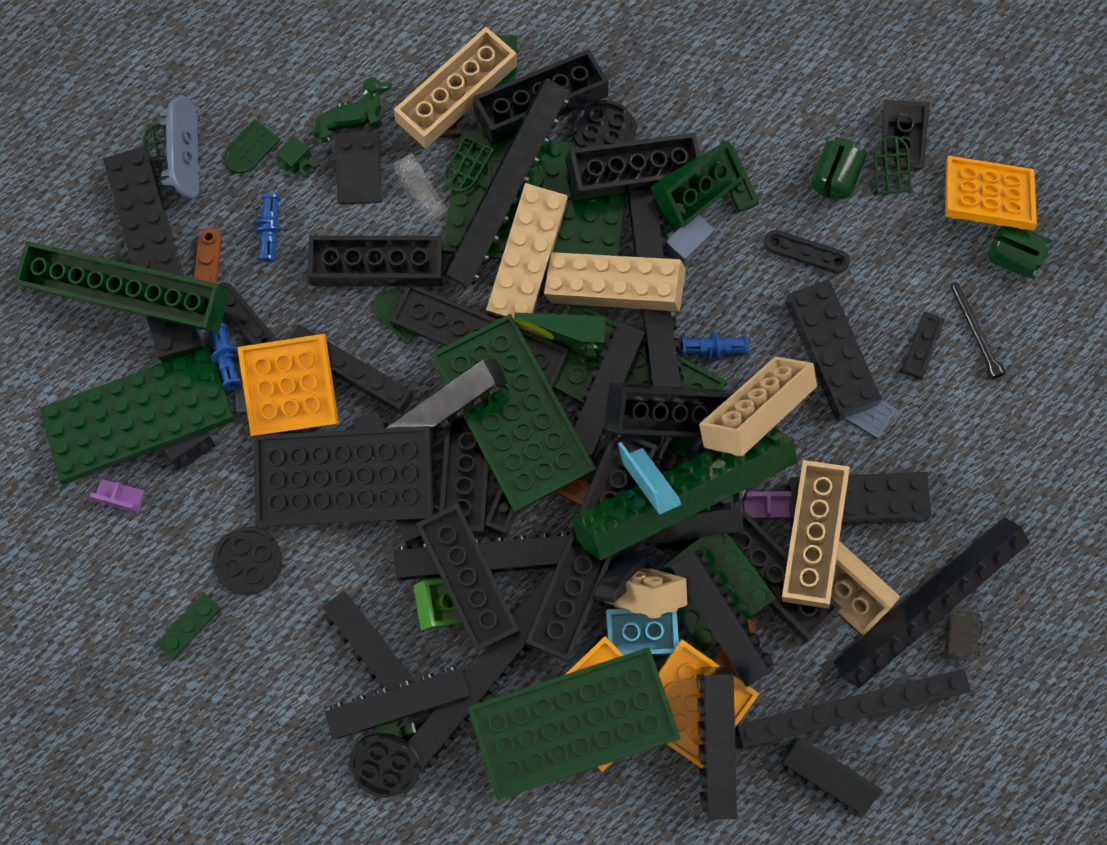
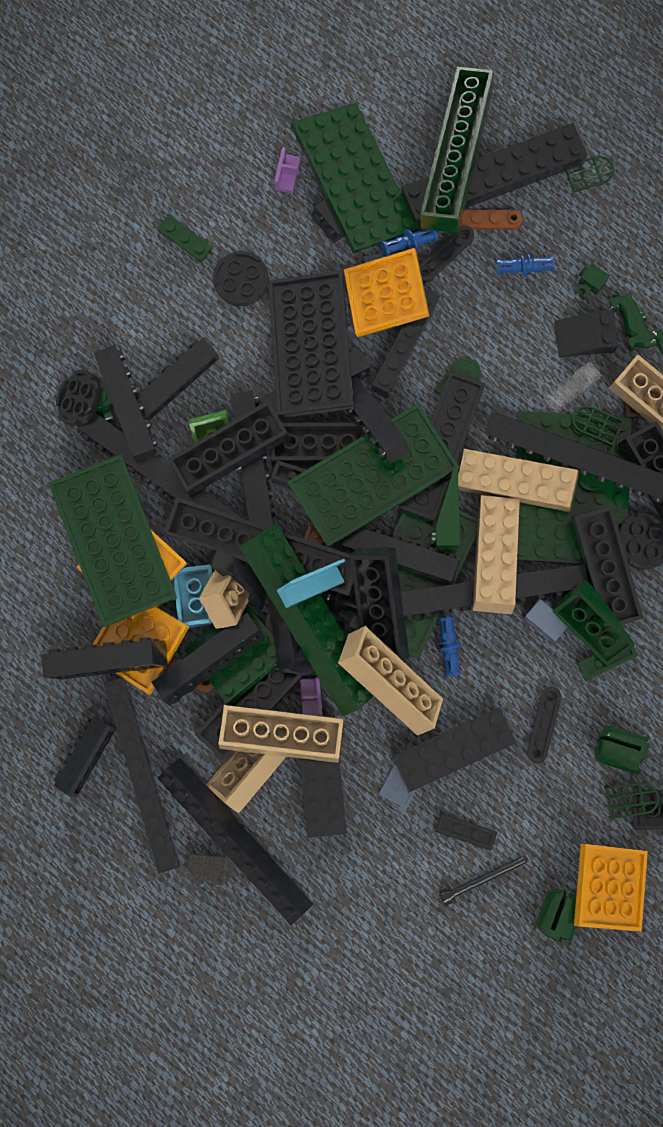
camera: 85 degrees right, 5 degrees up
(181, 147) = (590, 186): sand blue piece -> none
(250, 147) = (598, 243): dark green window -> none
(375, 260) = (502, 355): black brick -> none

